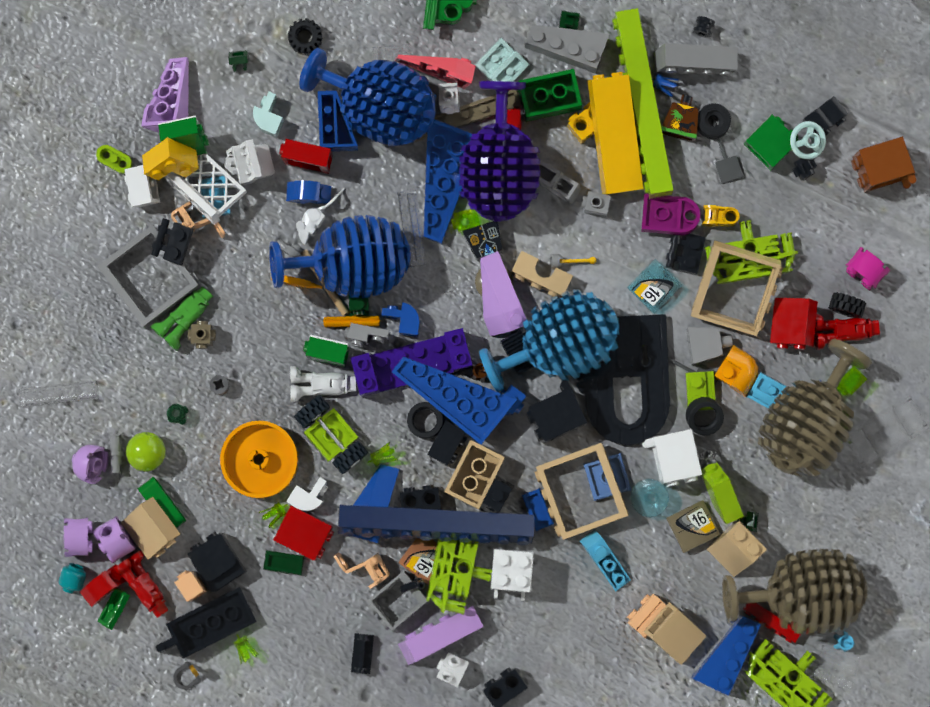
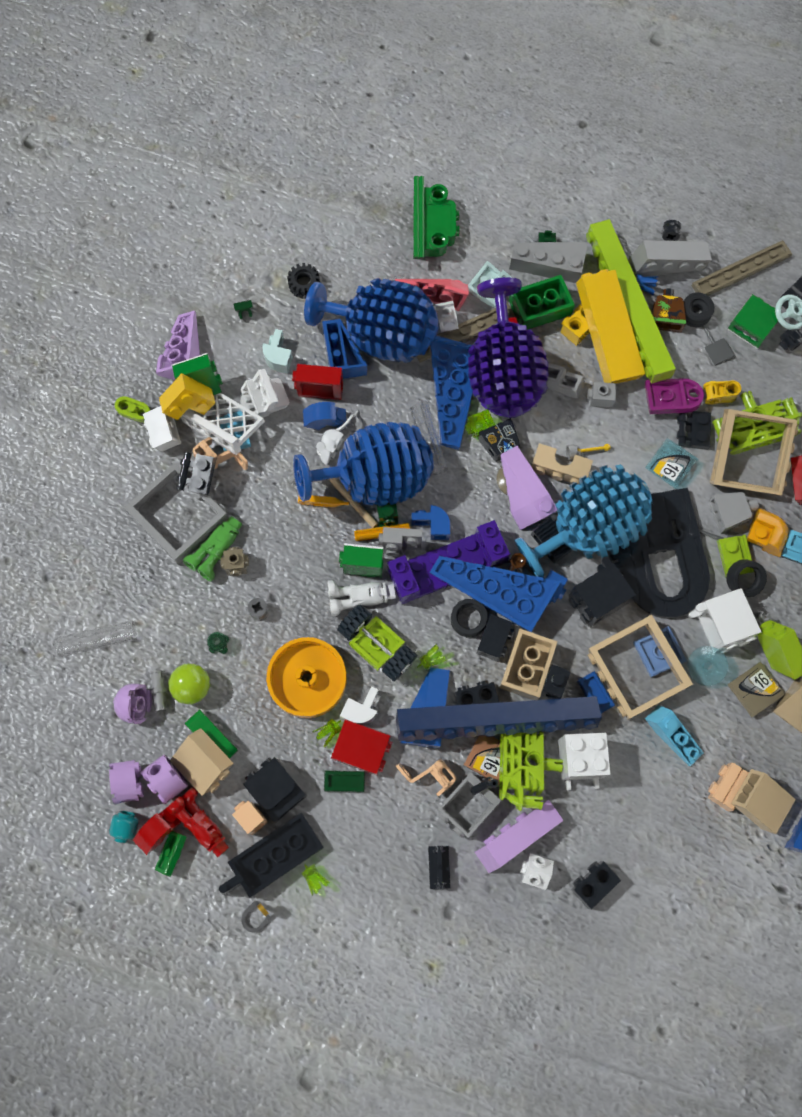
camera: 10 degrees left, 10 degrees down
(771, 79) = (742, 269): none -> dark tan tile

